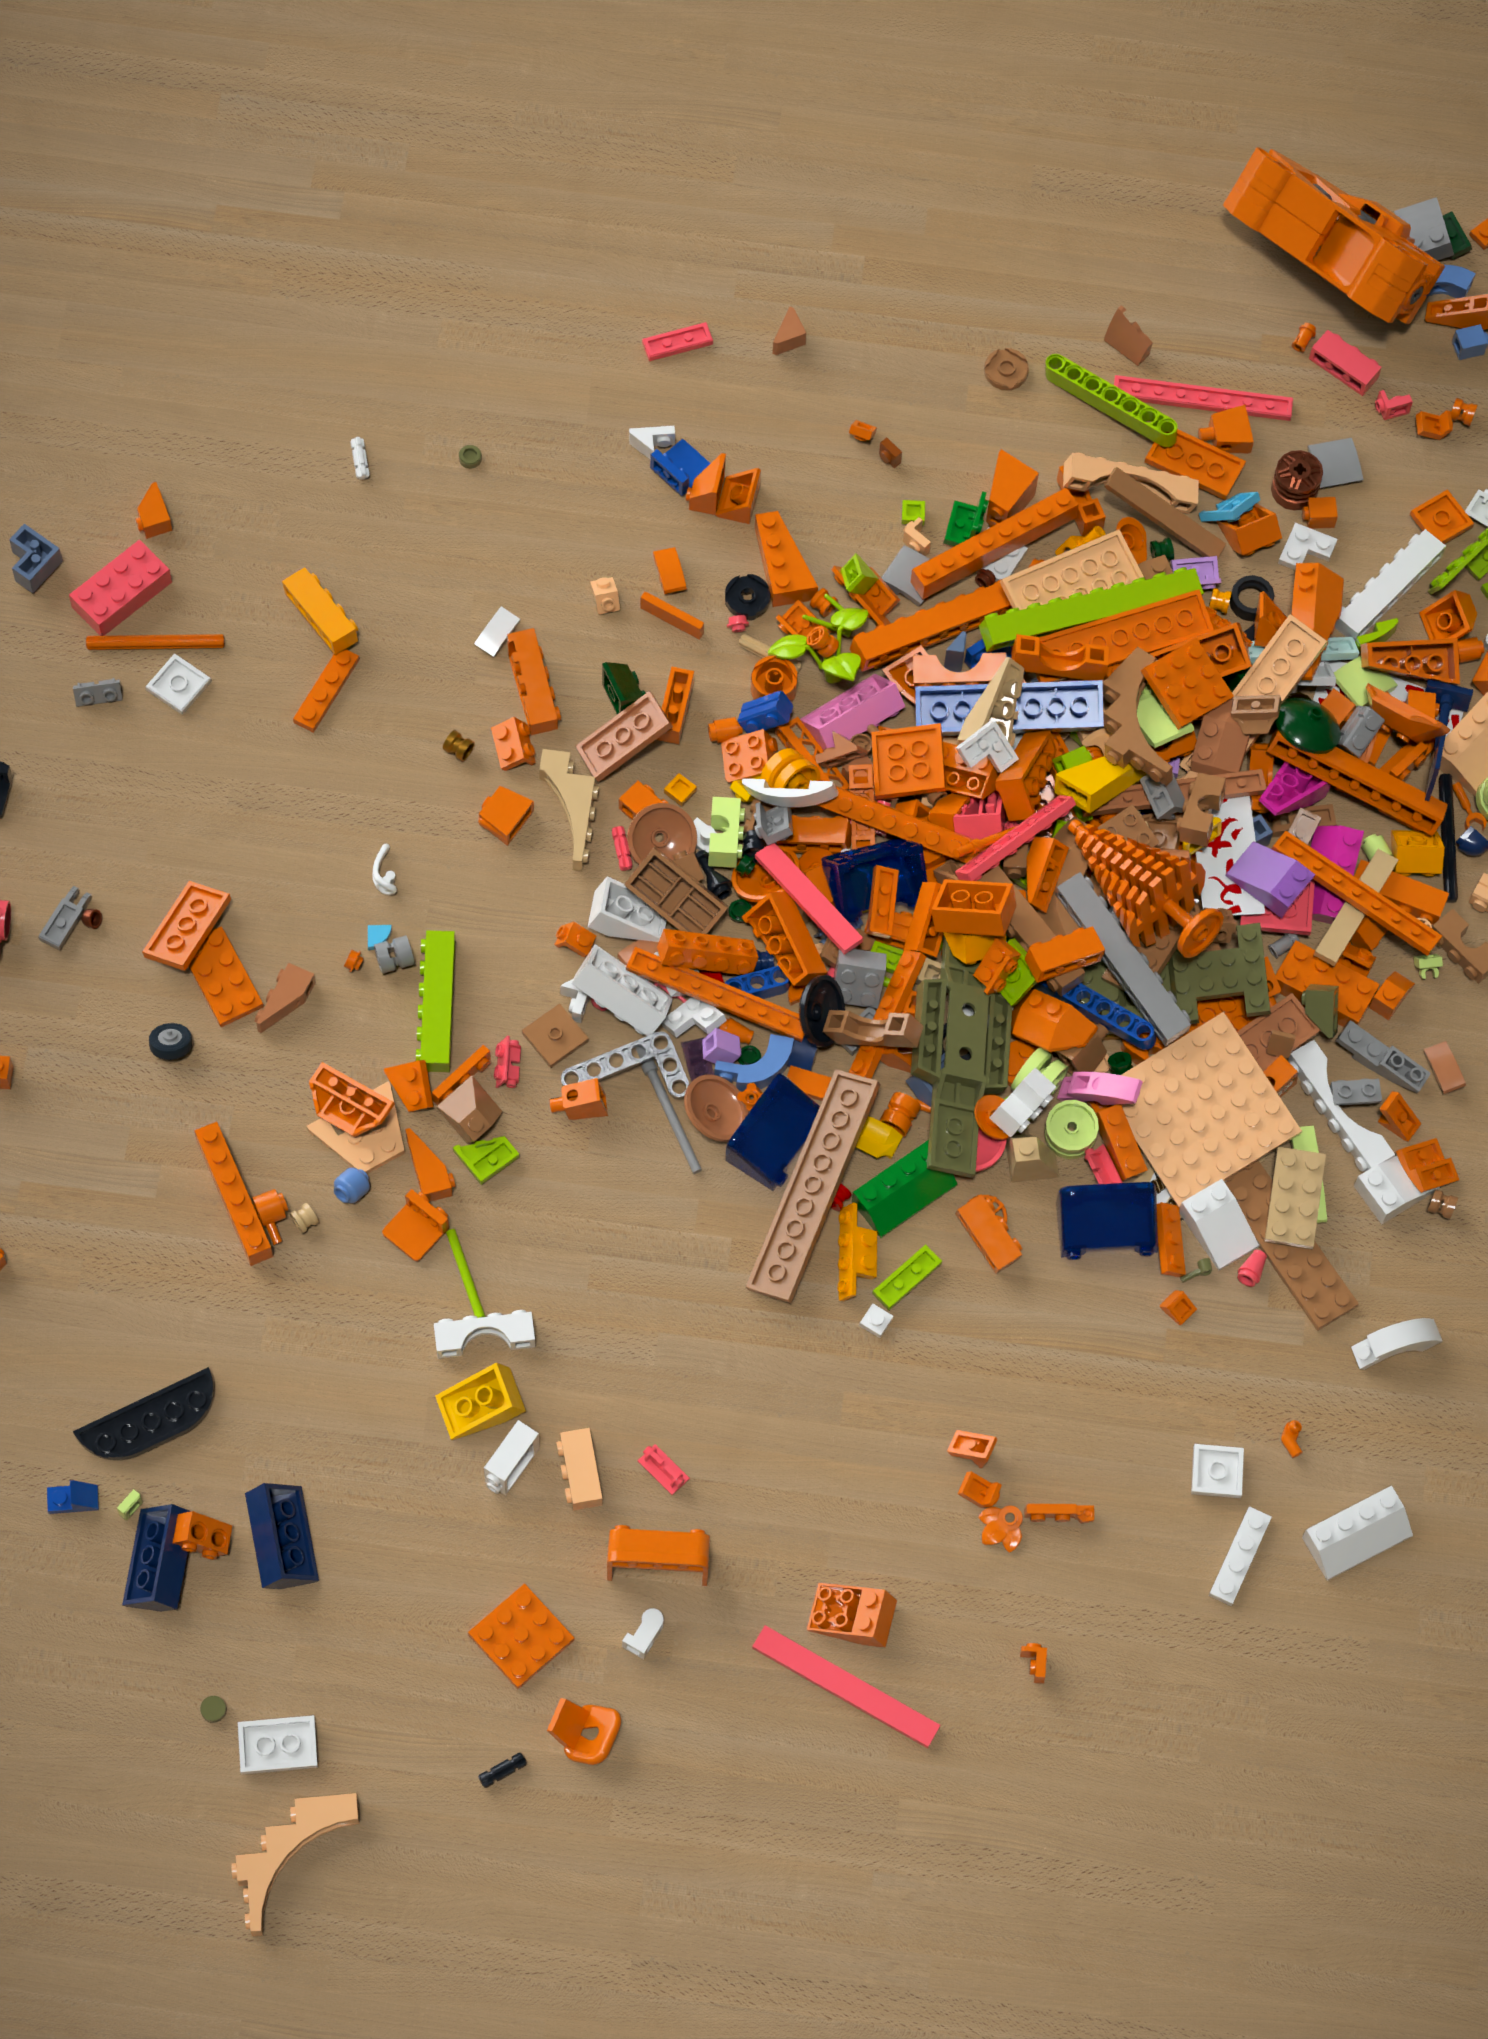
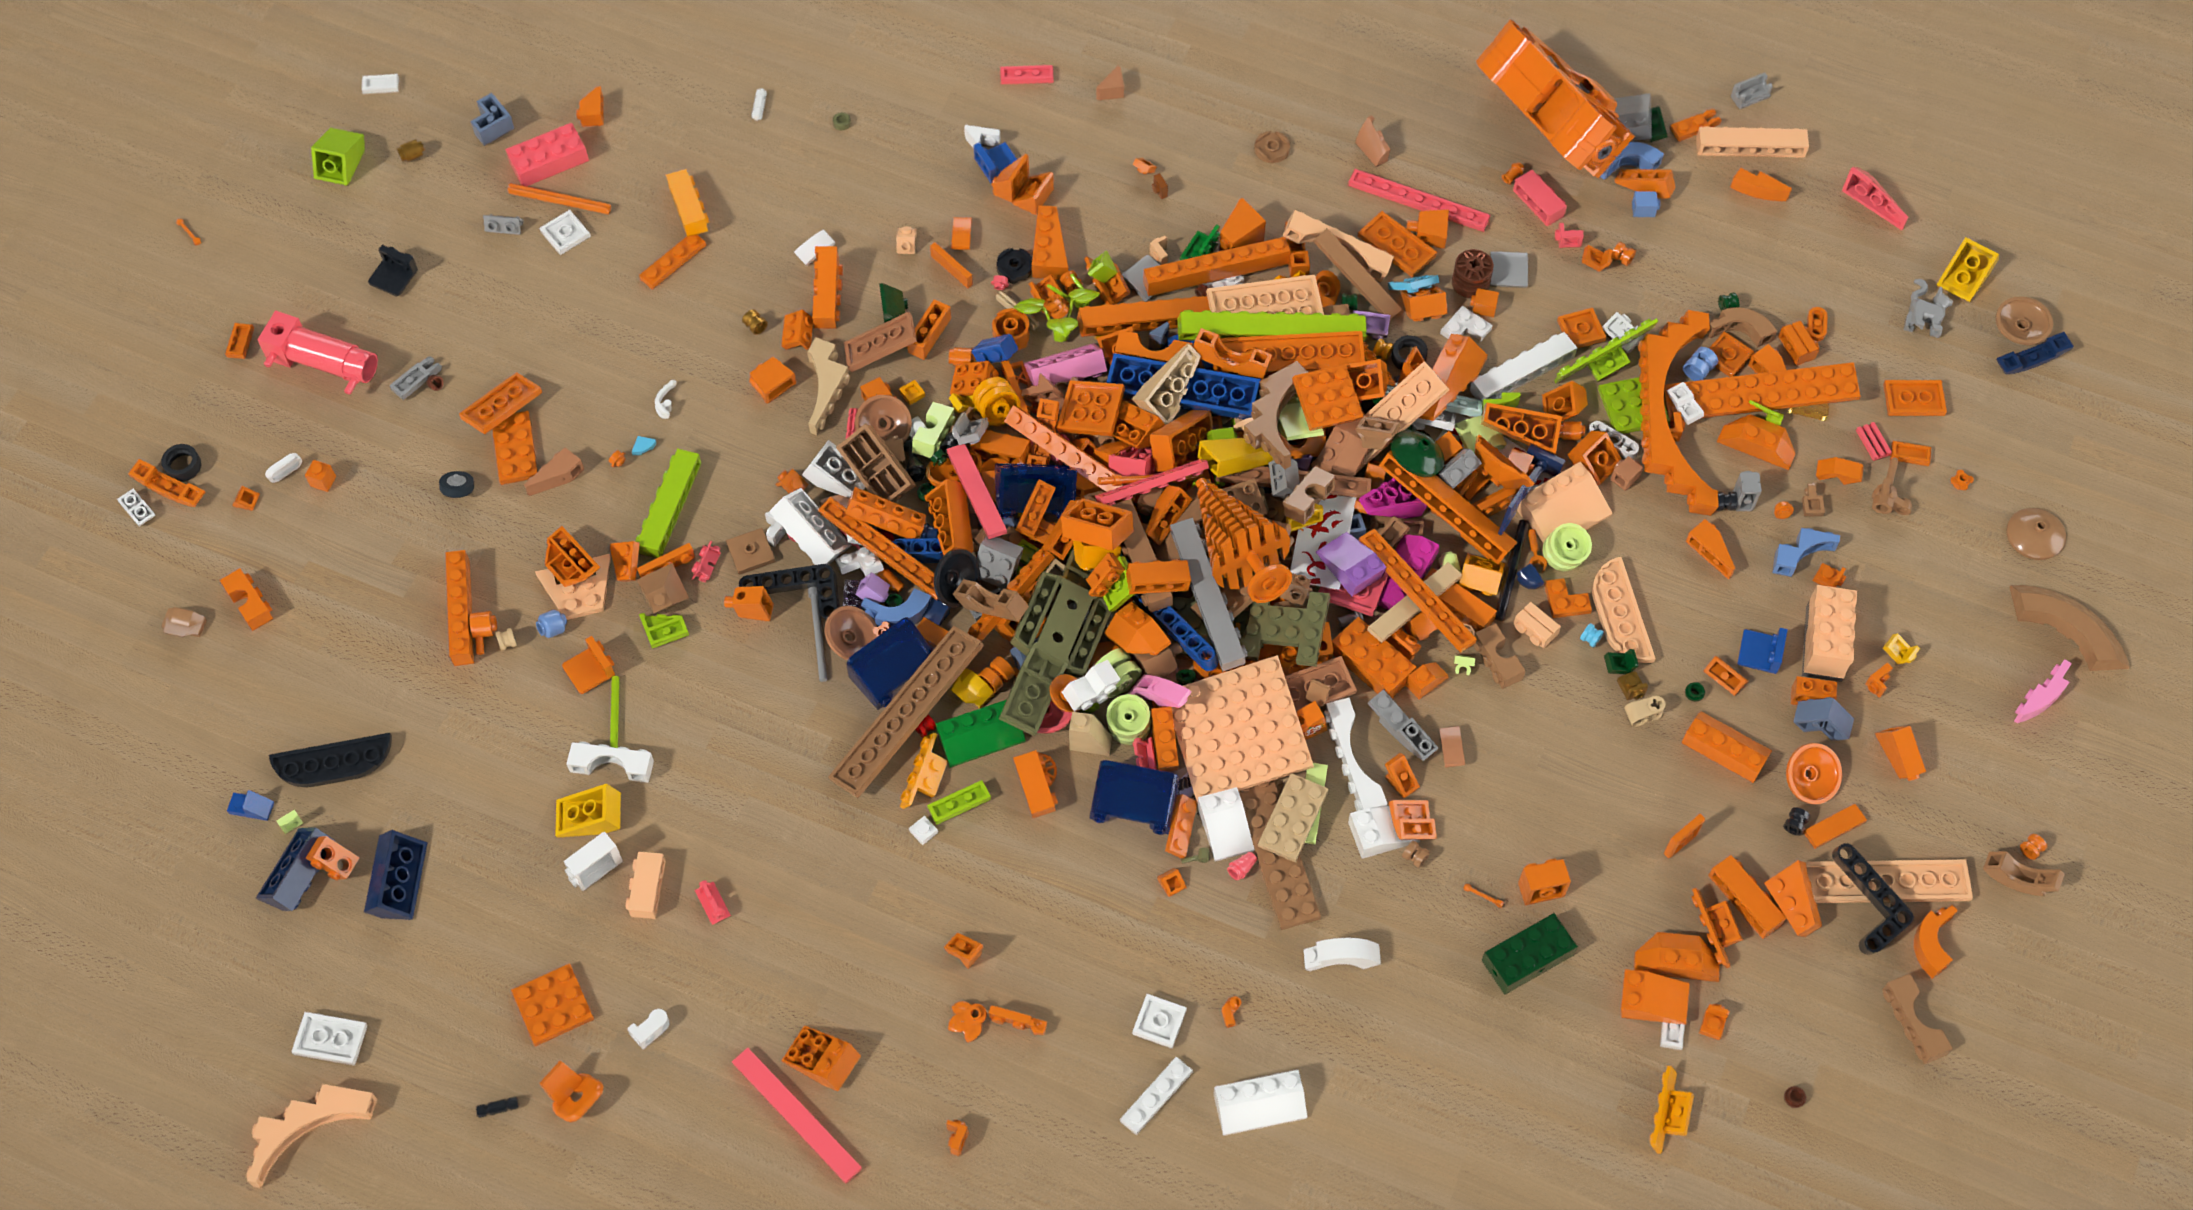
camera: 20 degrees right, 5 degrees down
(213, 1709) = (292, 997): olive tile -> none
(401, 950) = (654, 457): light grey wheel -> none
(430, 1171) = (614, 630): orange slope -> none
(658, 1550) = (680, 964): orange windscreen -> none
(817, 793) = (1006, 414): white slope -> none
(912, 511) = (1163, 229): lime plate -> none
(979, 1490) = (958, 985): orange bracket -> none
(988, 742) = (1152, 403): white plate -> none
(1106, 391) = (1344, 184): lime beam -> none
(1322, 1007) = (1362, 673): olive slope -> none
(1356, 1092) = (1370, 746): light grey bracket -> none

